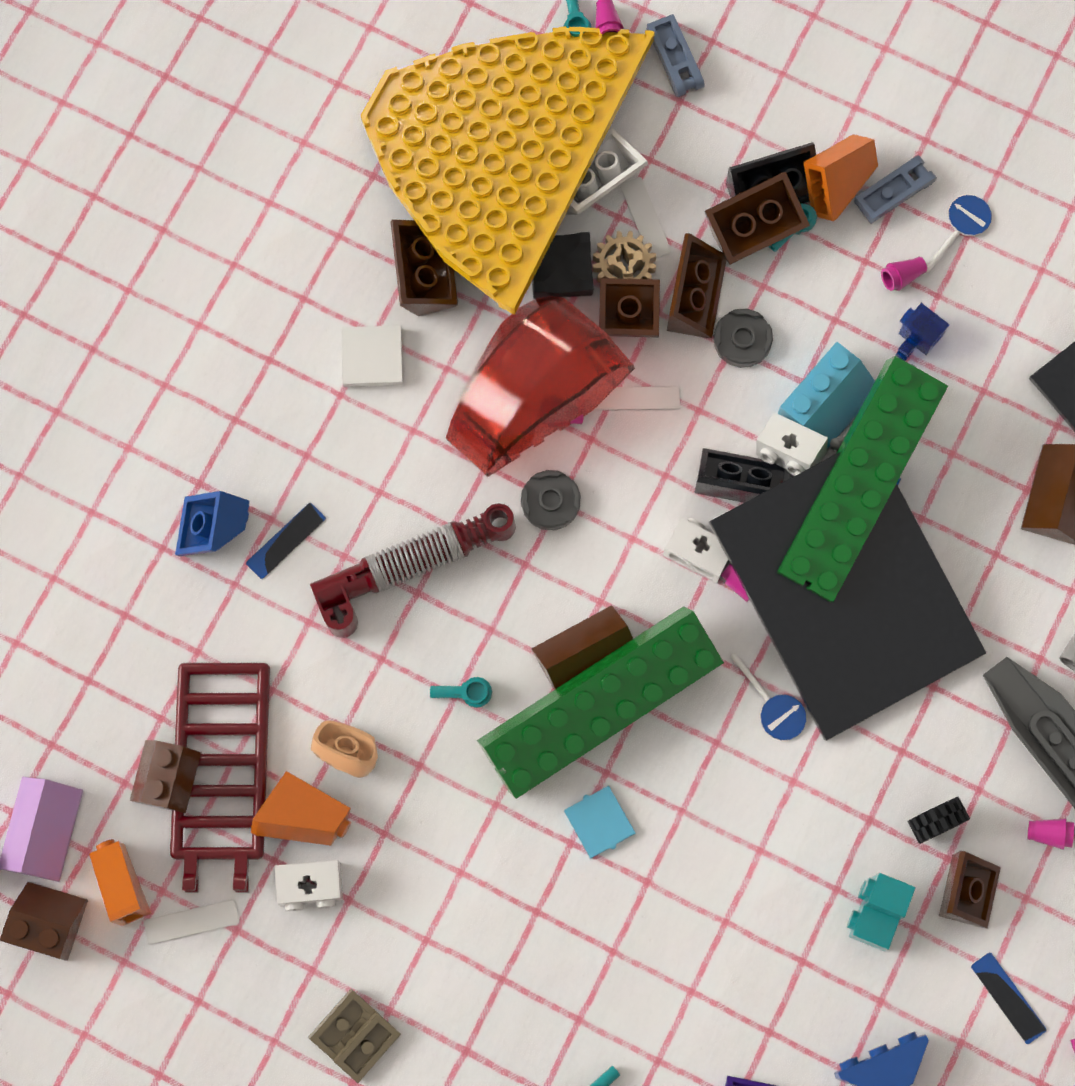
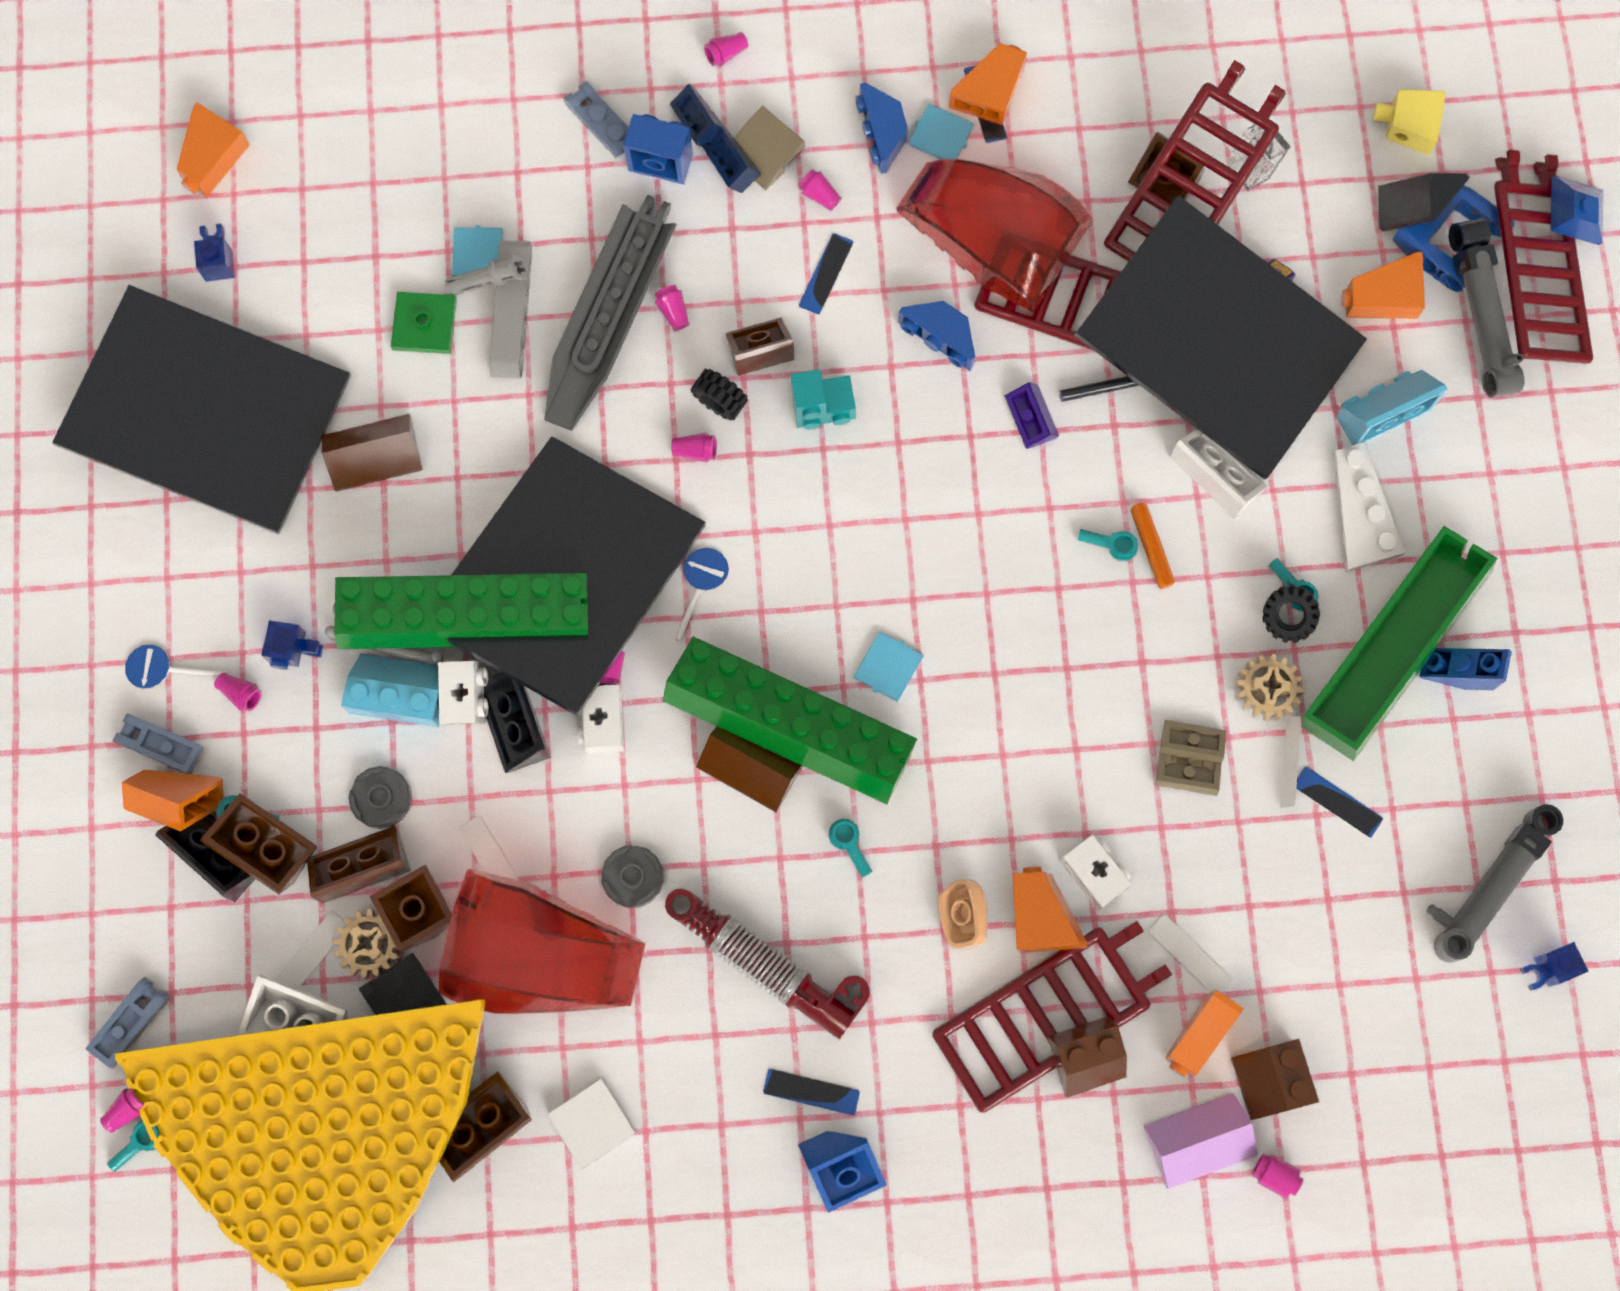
camera: 120 degrees left, 0 degrees up
(901, 774) = (696, 447): none -> dark pink cone

